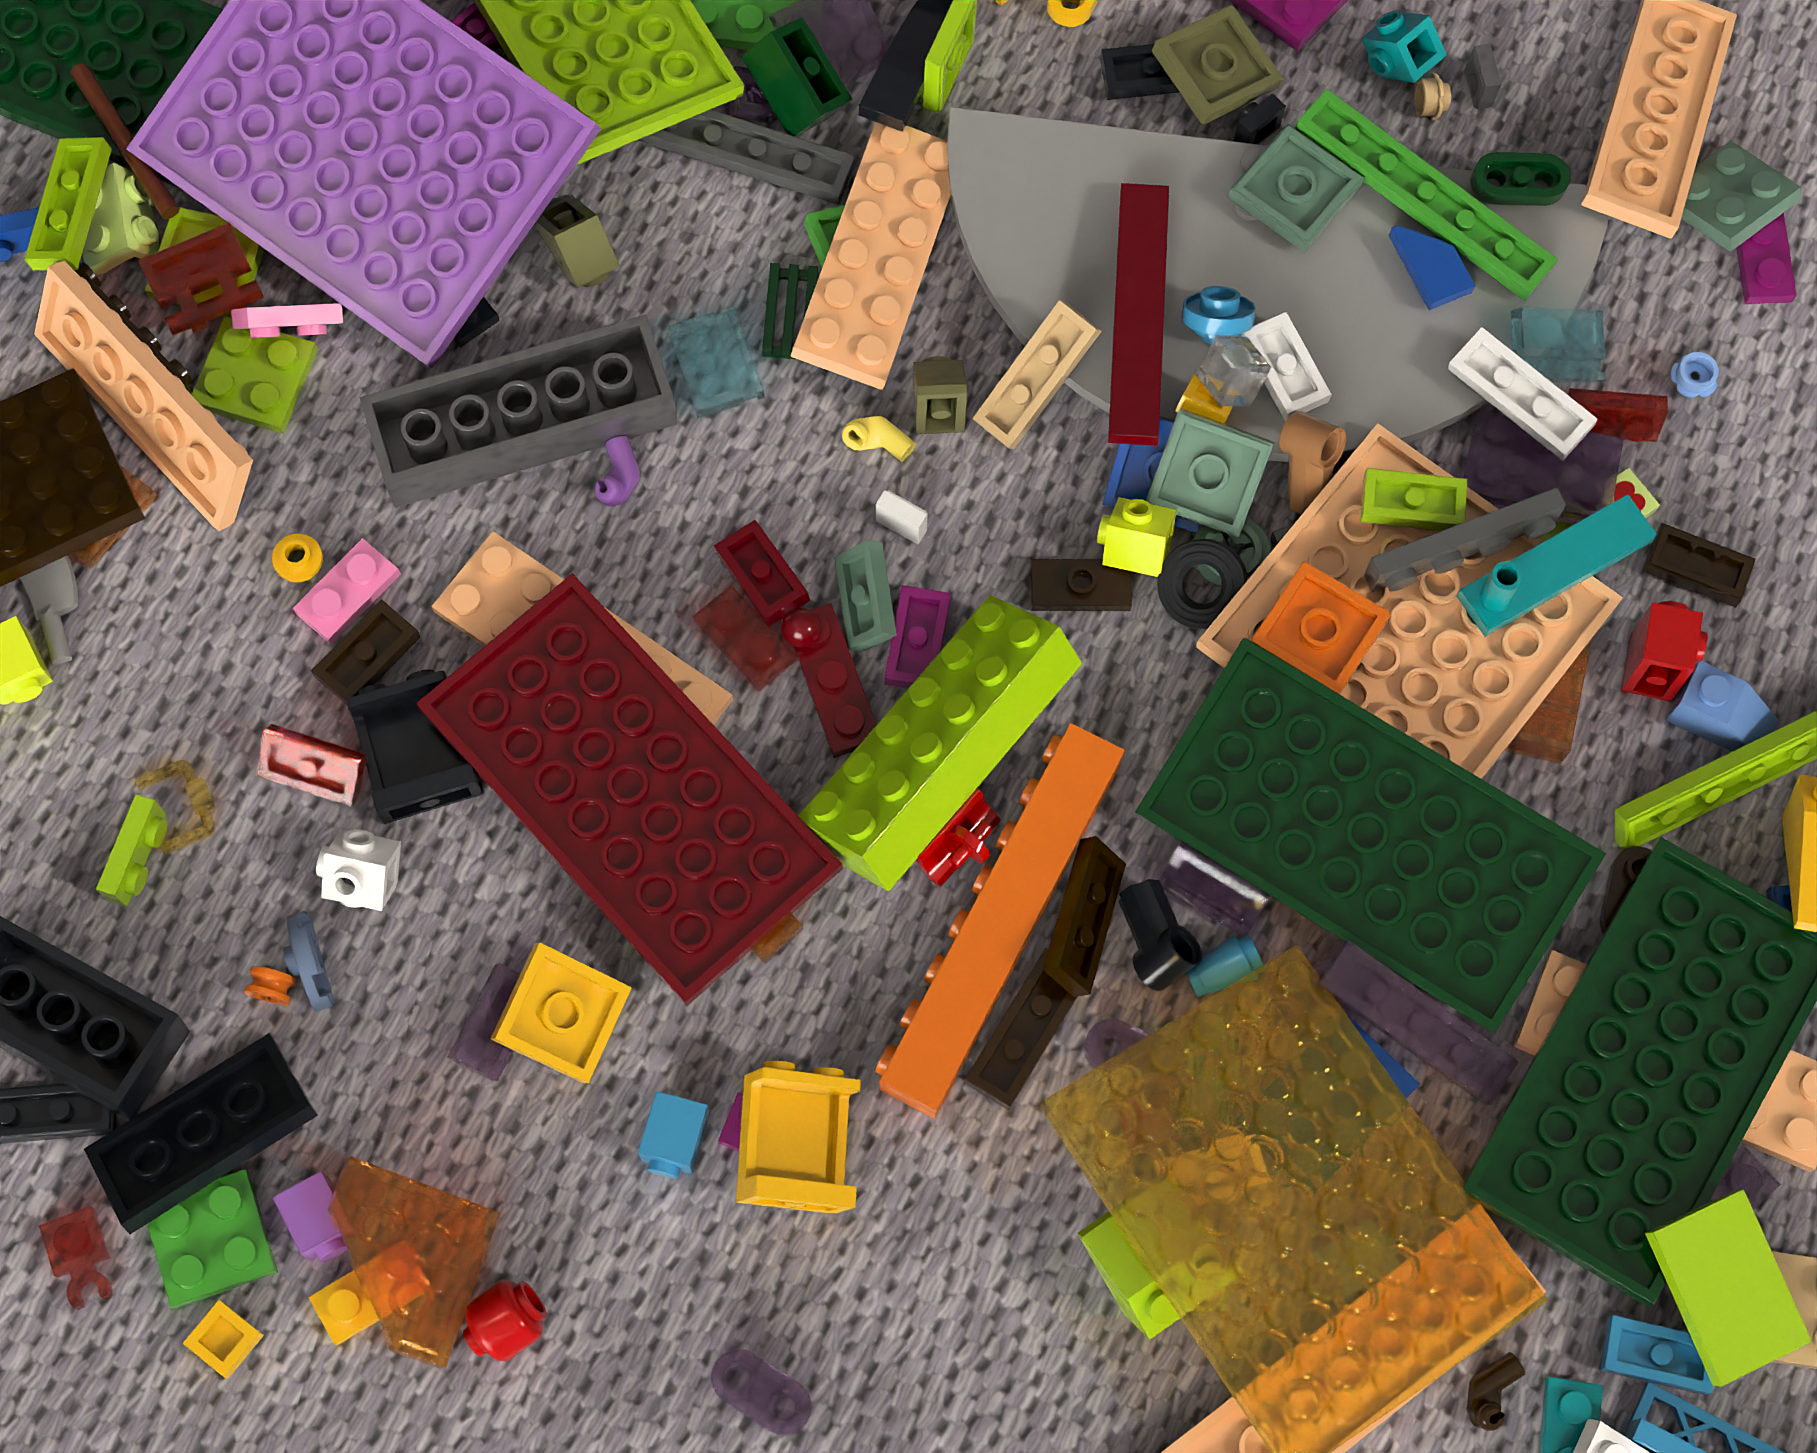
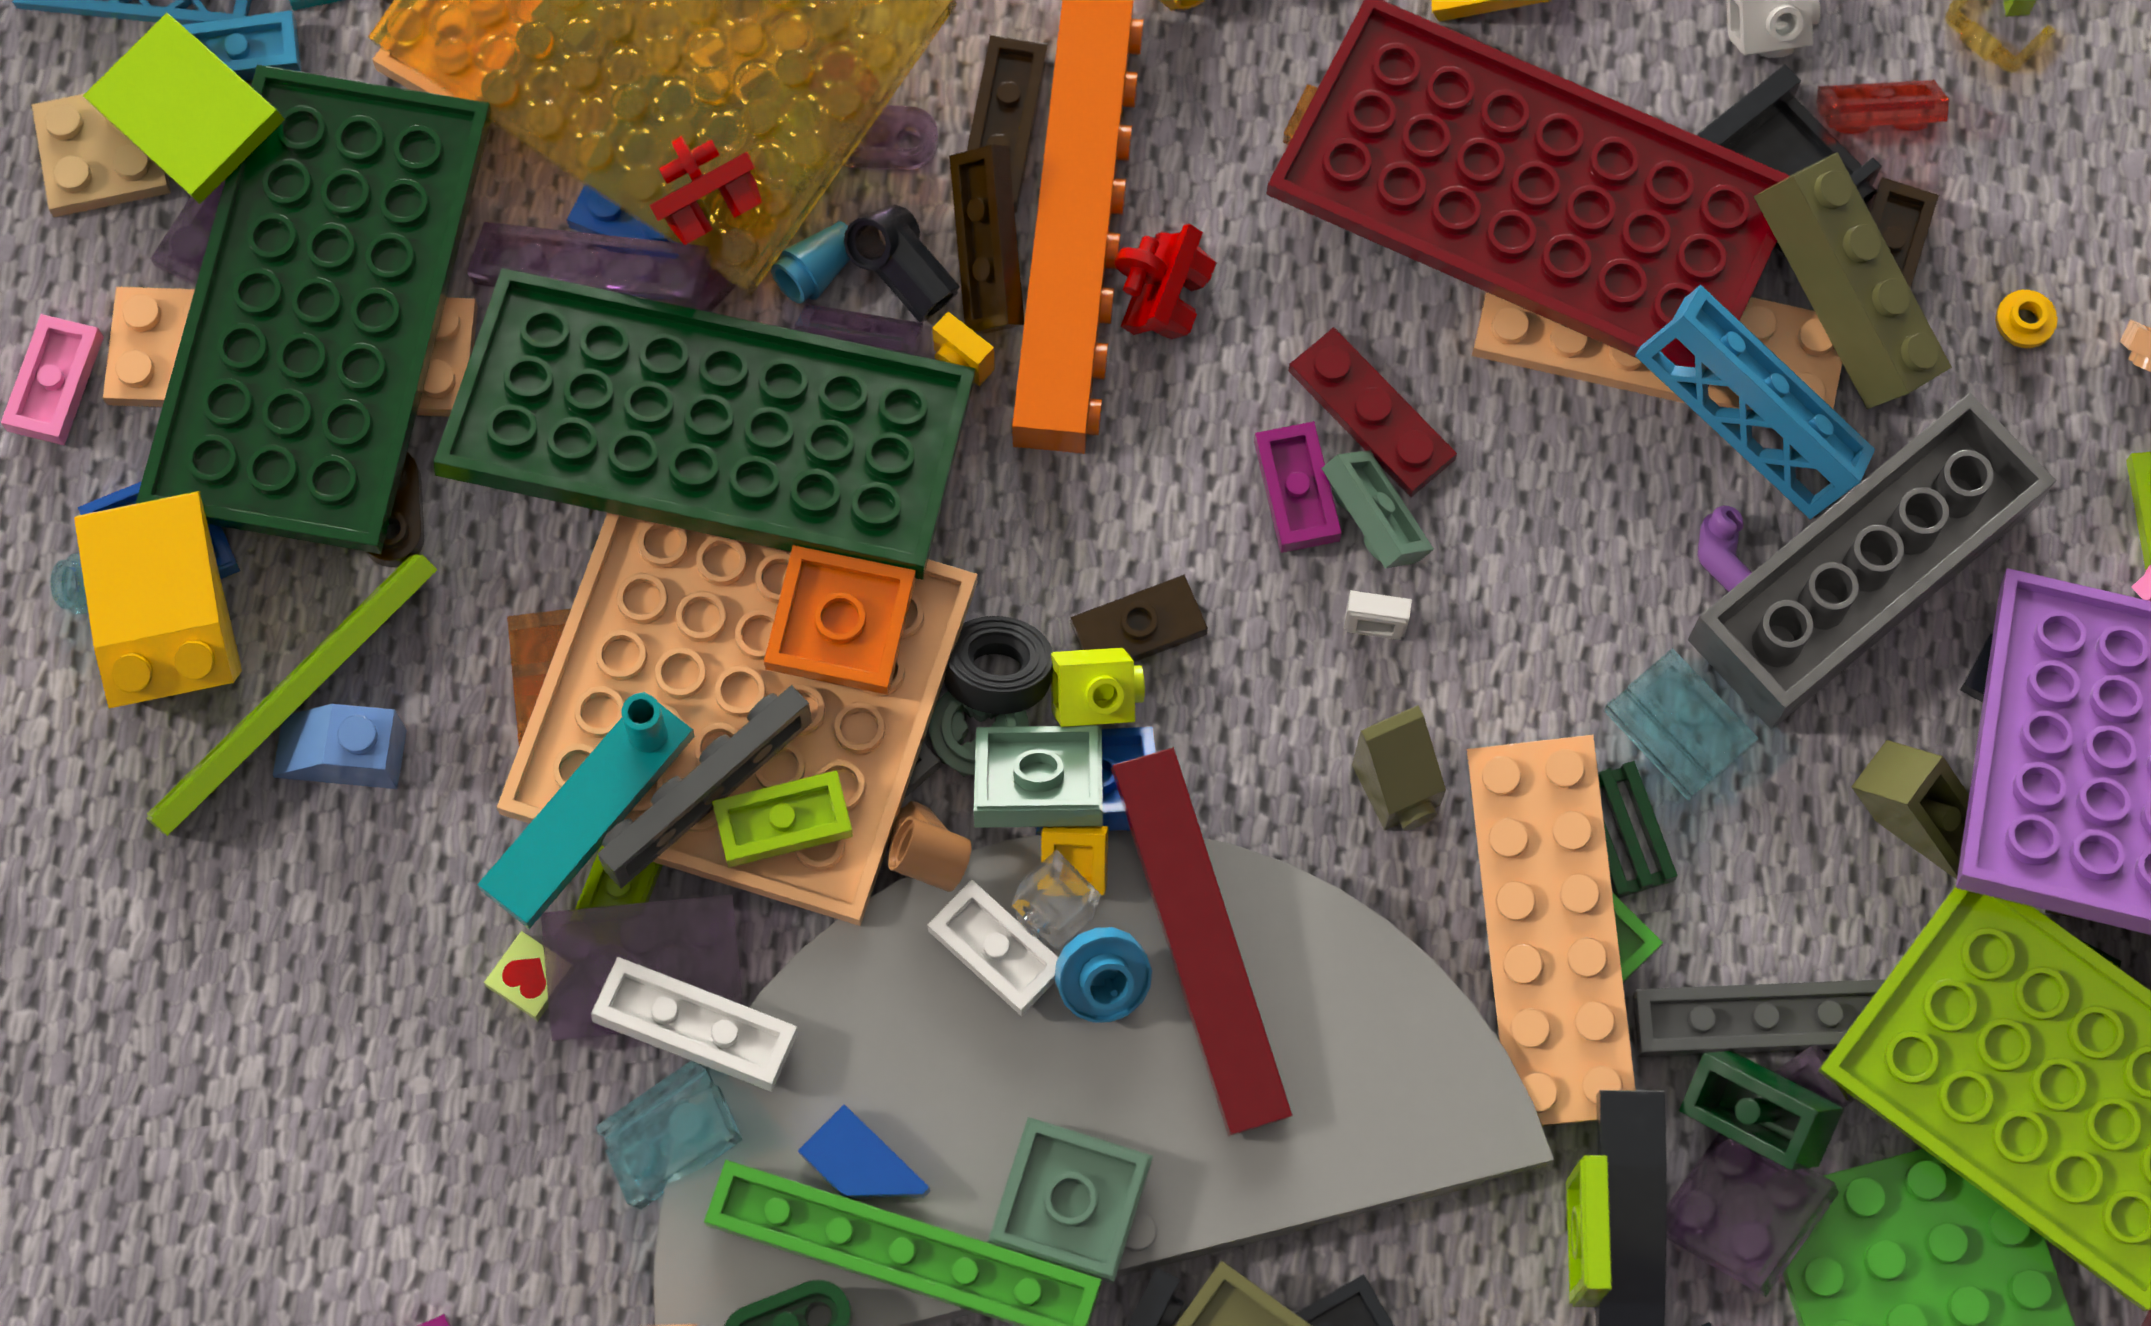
camera: 160 degrees right, 0 degrees up
(346, 591) = (1957, 299): bright pink plate -> none
(424, 607) = (1853, 281): none -> olive brick
(543, 546) = (1773, 394): none -> dark azure fence
(744, 638) = (1490, 421): clear red plate -> none
(769, 584) = (1491, 480): dark red plate -> none
(877, 433) = (1457, 713): light yellow arm -> none
(940, 740) = (1220, 359): lime brick -> none
(1036, 374) = (1292, 833): tan plate -> none
(1136, 841) = (962, 346): none -> yellow plate
(1311, 1019) = (682, 206): none -> red hips
(1624, 414) = (546, 1077): clear red plate -> none
(1664, 650) = (430, 770): red brick -> none
(1699, 364) = (481, 1162): light blue plate -> none
(1699, 565) = (416, 924): dark brown plate -> none

